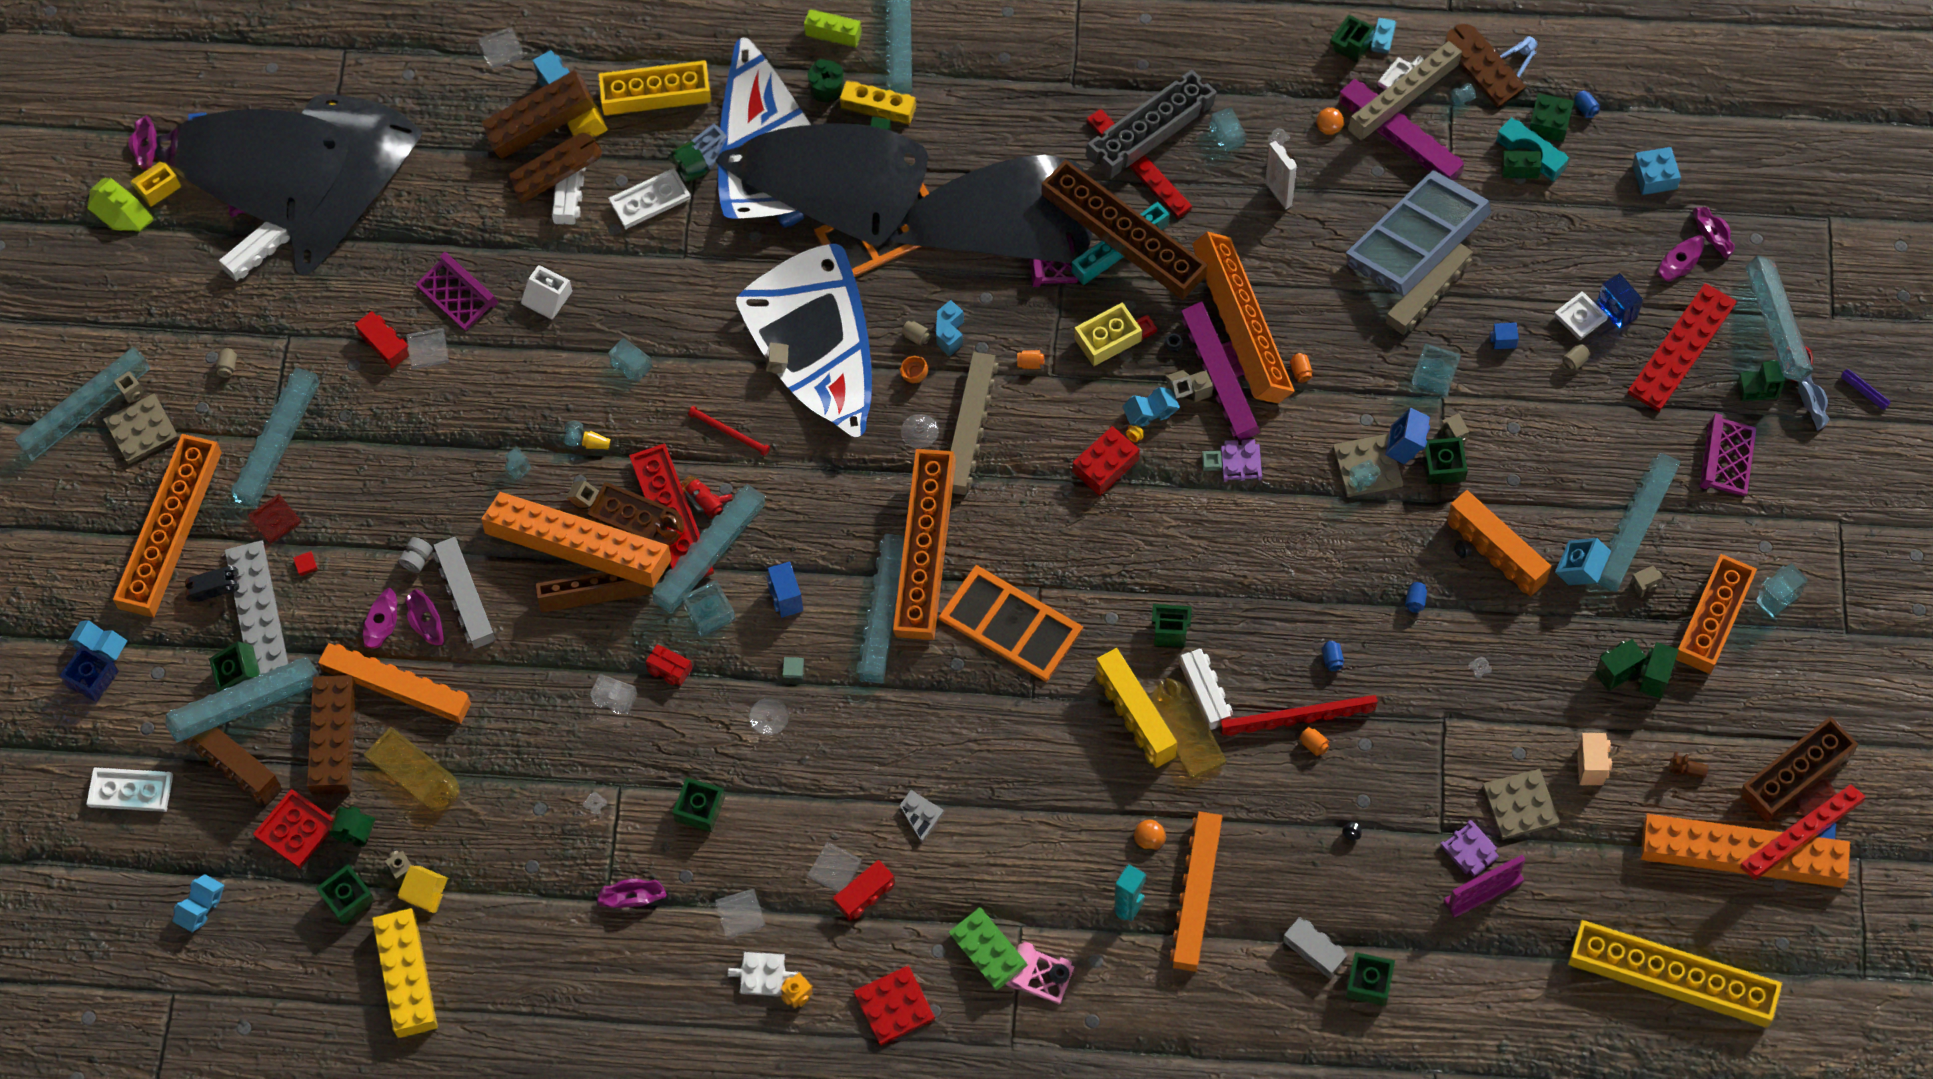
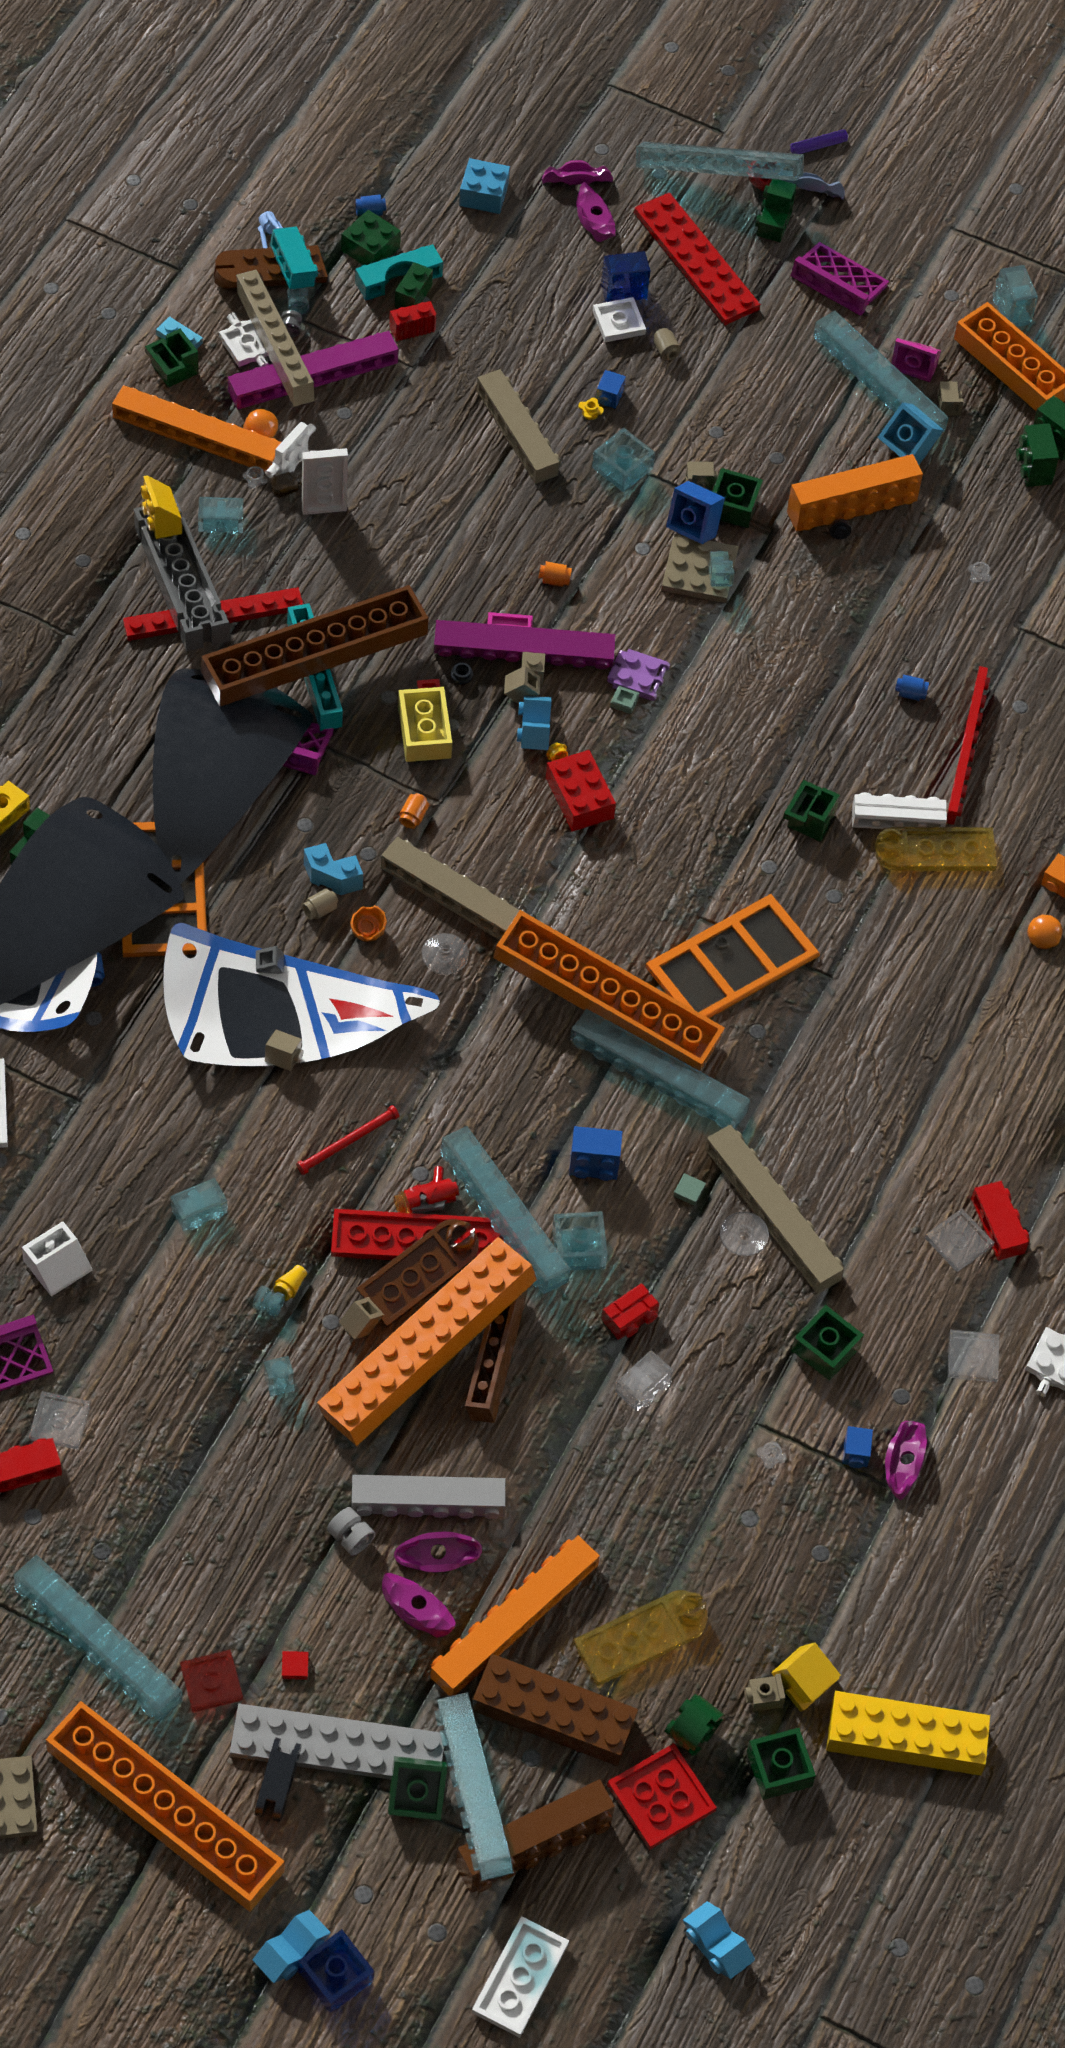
camera: 75 degrees left, 5 degrees down
(623, 858) = (857, 1447): none -> blue brick
(800, 729) = (773, 1206): none -> dark tan brick
(854, 322) = (270, 960): none -> dark grey slope
(920, 814) = (928, 1134): light grey wing -> none
(1136, 708) = (899, 879): yellow brick -> none
(1191, 81) = (160, 508): none -> yellow slope
(1243, 318) = (479, 594): orange brick -> none
(1298, 82) = (194, 428): none -> orange brick
(1309, 147) = (290, 450): none -> white plate
(1314, 741) = (1003, 744): orange brick -> none
(1416, 597) = (878, 590): blue brick -> none
(1418, 233) = (453, 404): window -> none
(1436, 99) = (292, 322): none -> dark grey wheel
(1477, 334) = (590, 409): none -> yellow plate
(1488, 177) = (412, 321): none -> red brick
(1491, 71) = (293, 257): none -> teal brick
(1671, 541) = (915, 359): none -> dark pink slope

